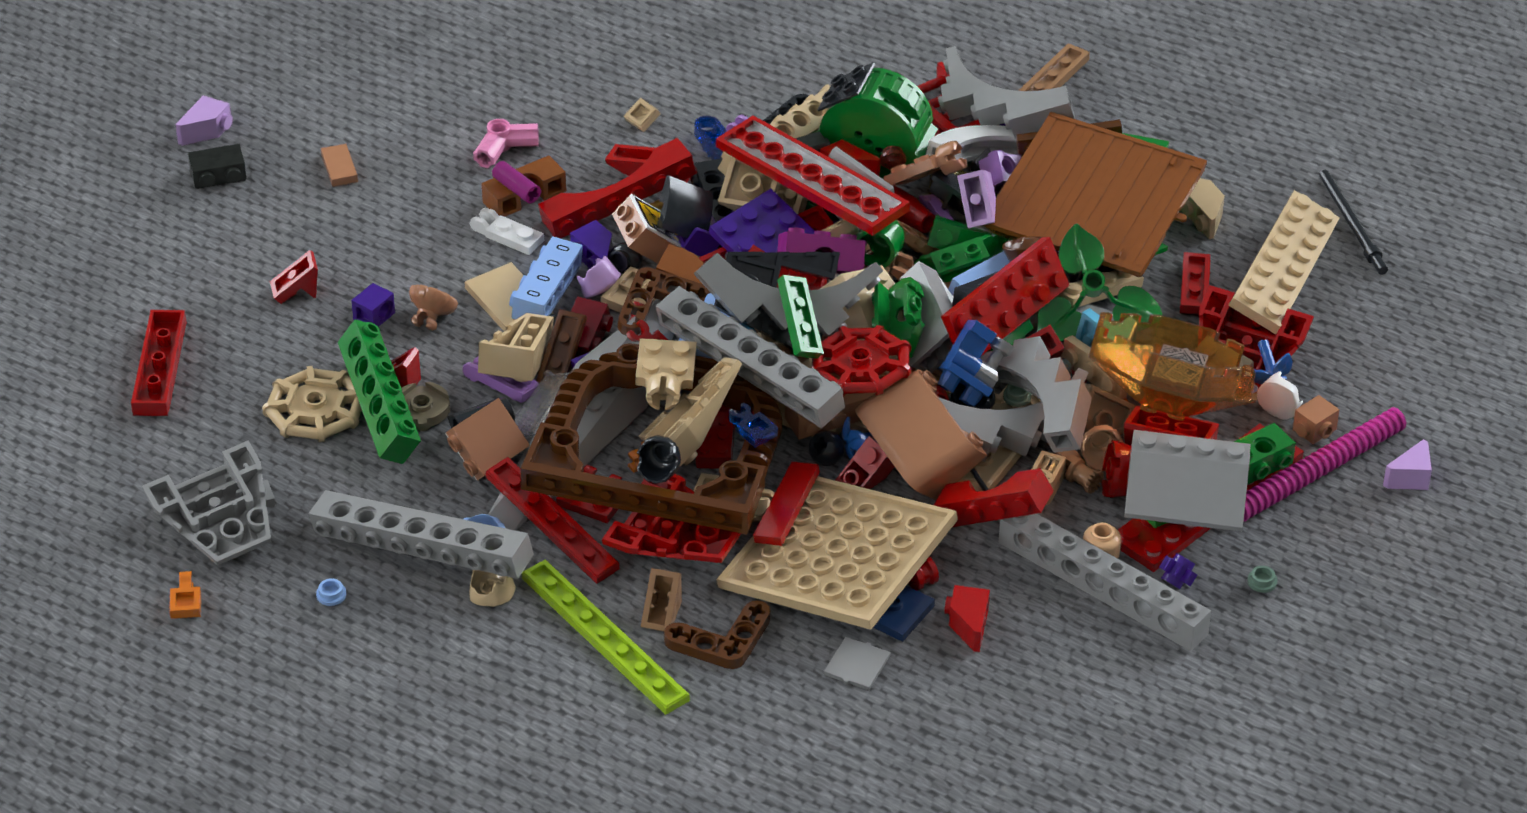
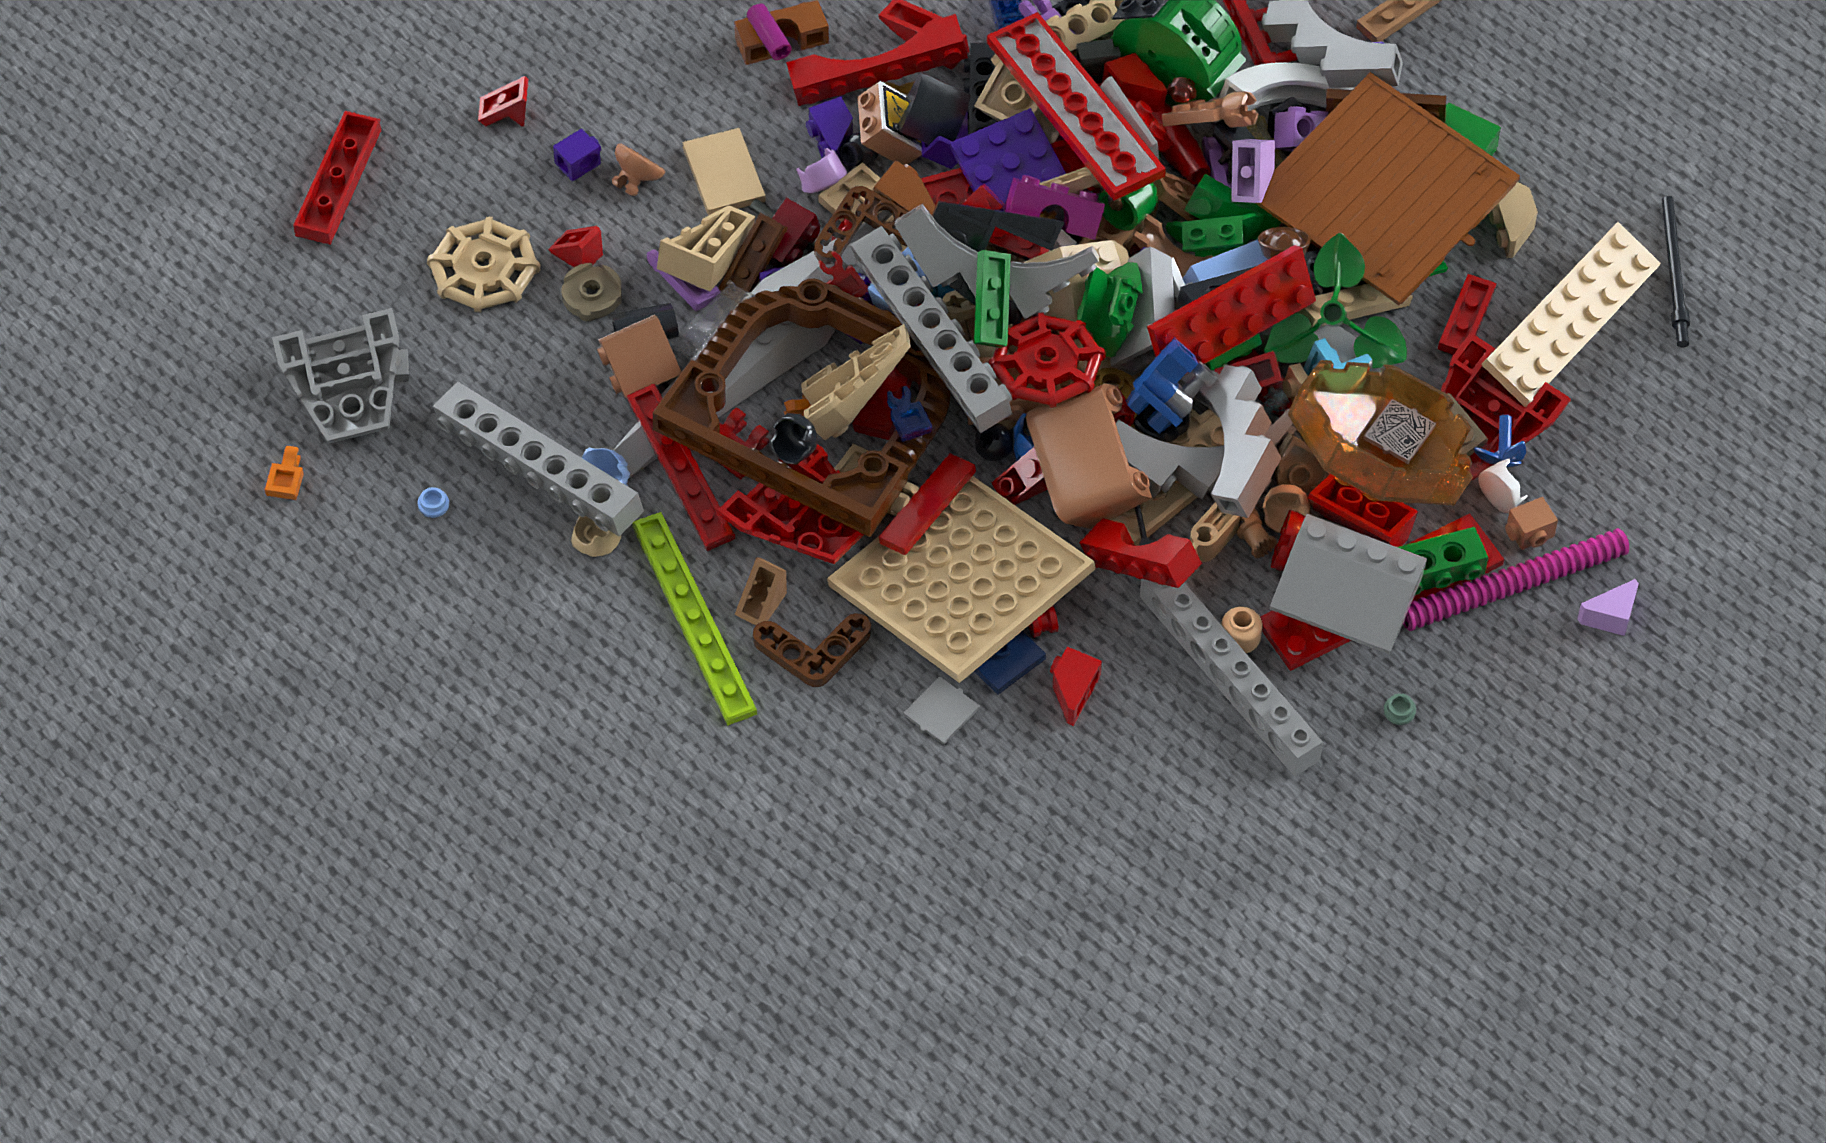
camera: 15 degrees right, 15 degrees up
(379, 392) = (548, 269): green brick -> none
(507, 231) = (749, 85): white hinge -> none
(547, 278) = (765, 163): light blue brick -> none
(665, 370) = (840, 322): tan plate -> none
(1016, 396) = (1212, 424): sand green plate -> none
(1178, 571) = (1311, 680): dark purple gear -> none

